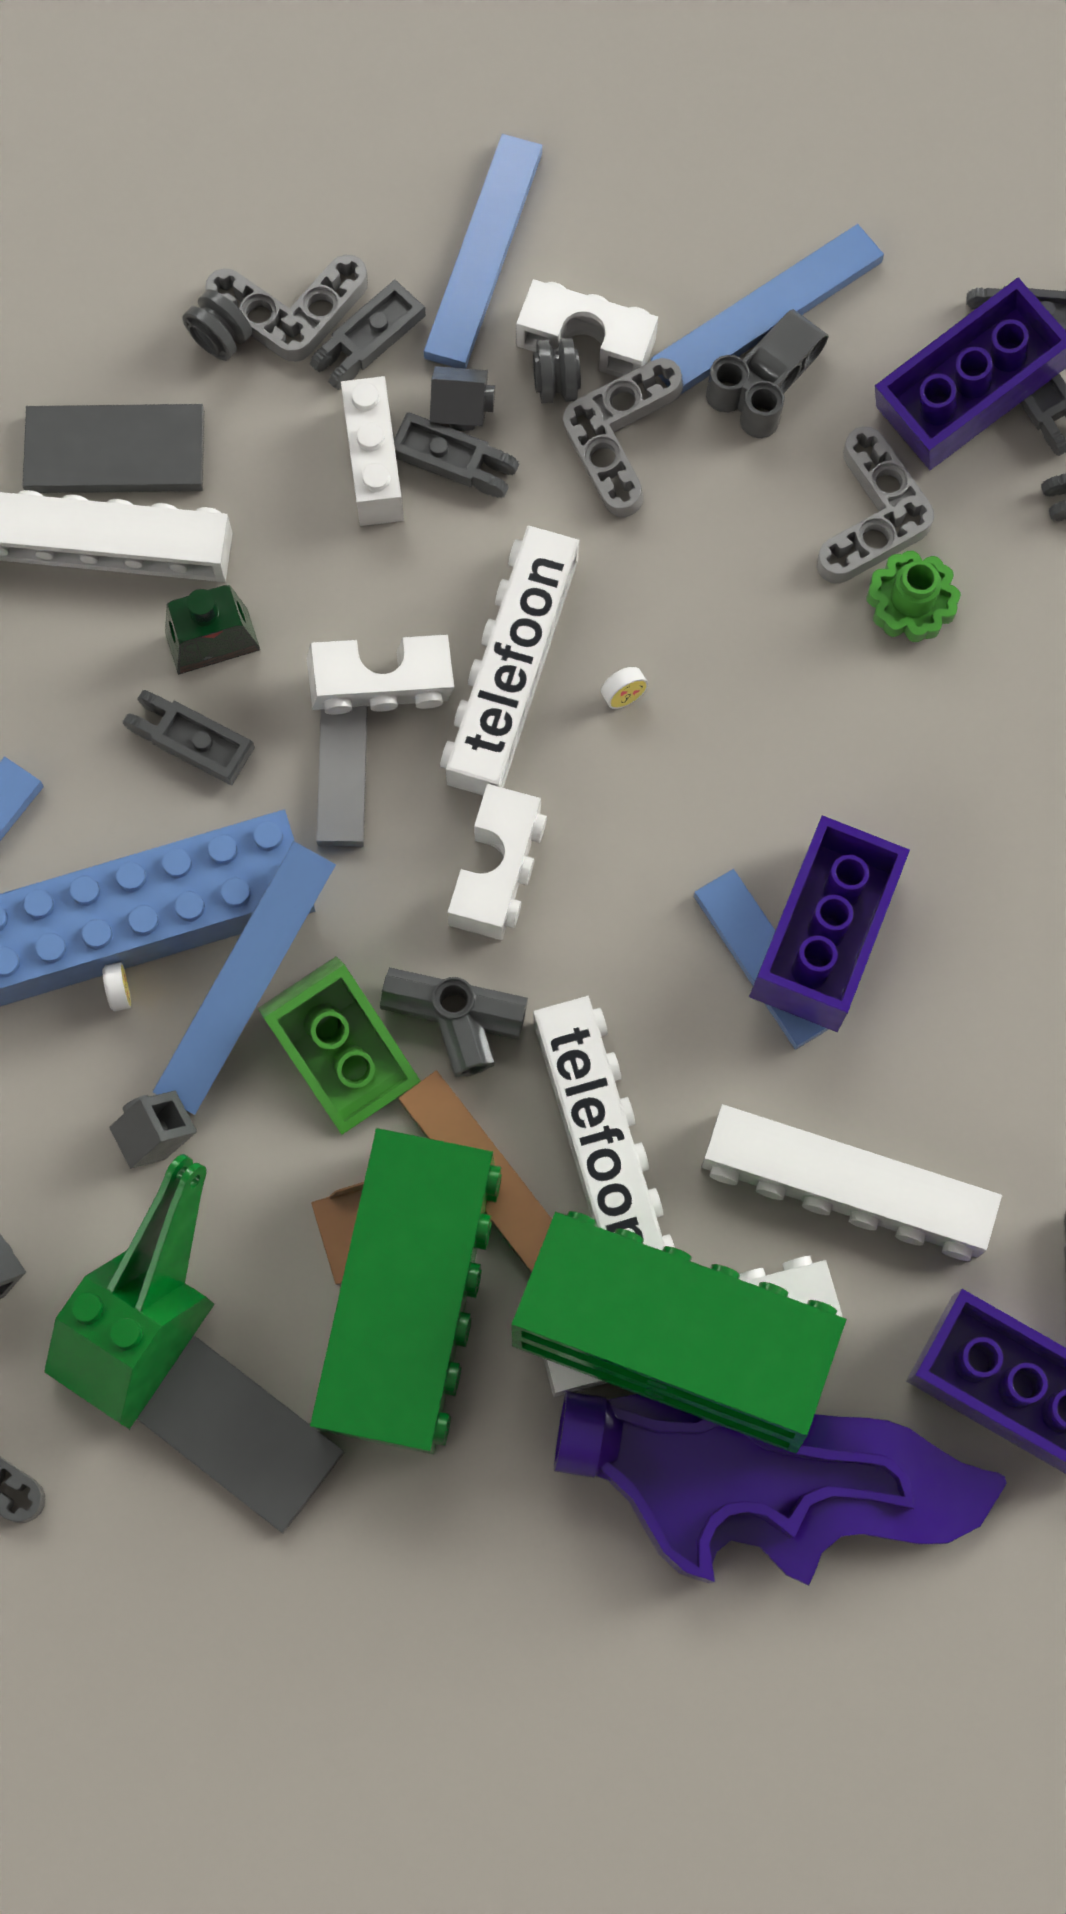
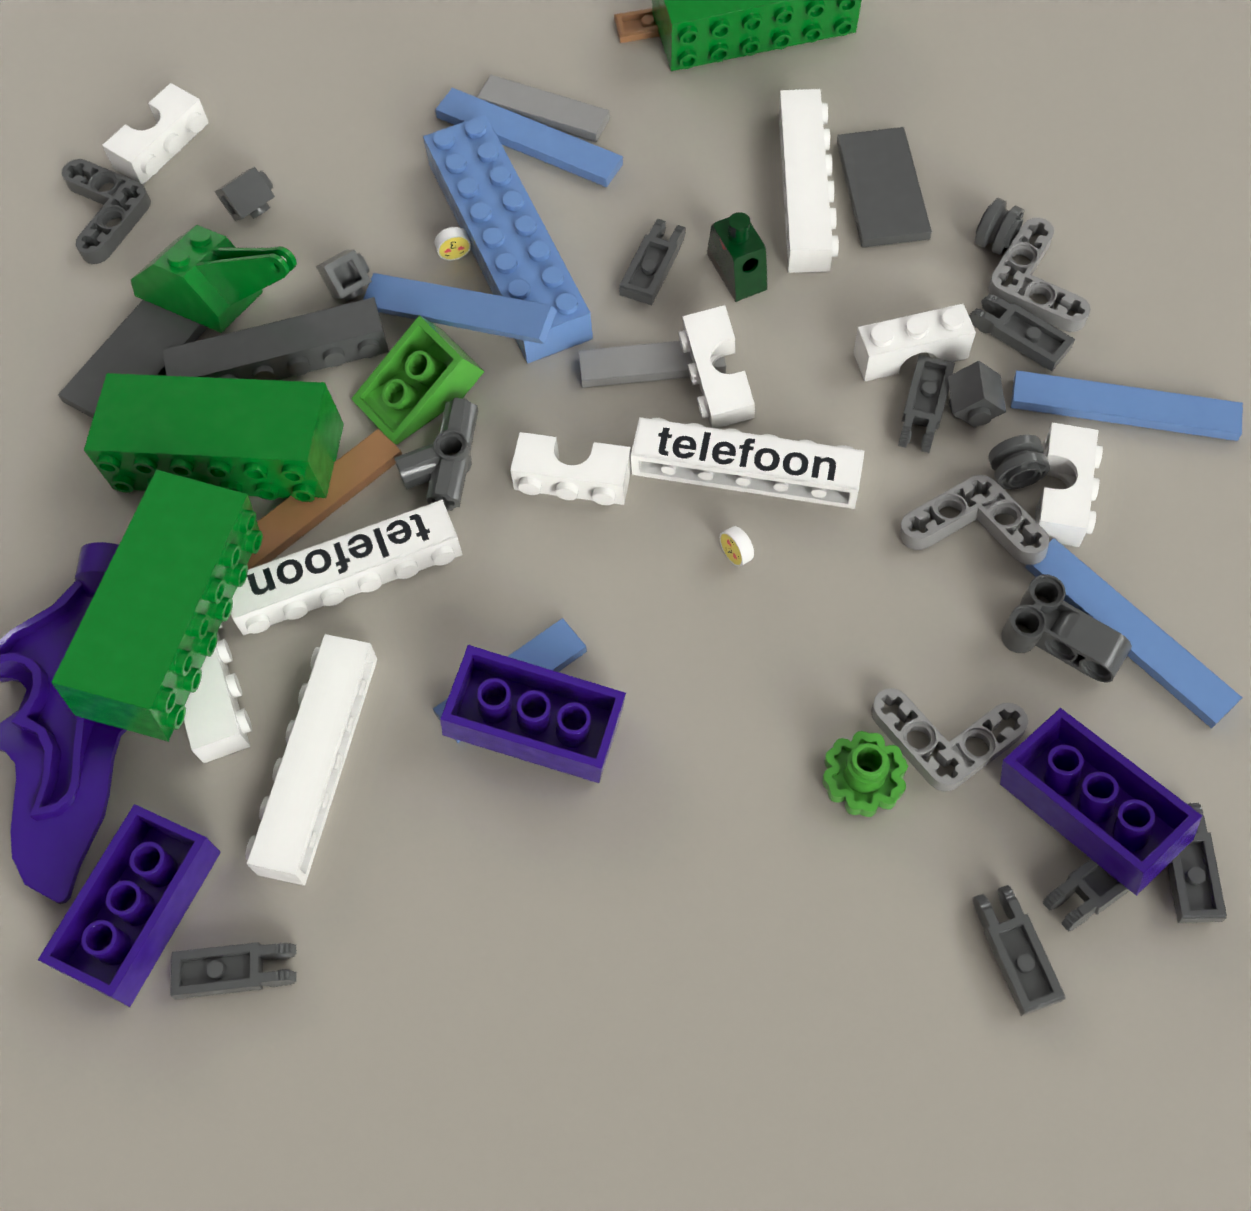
camera: 90 degrees right, 10 degrees down
(260, 1228) = (285, 346): none -> dark grey brick

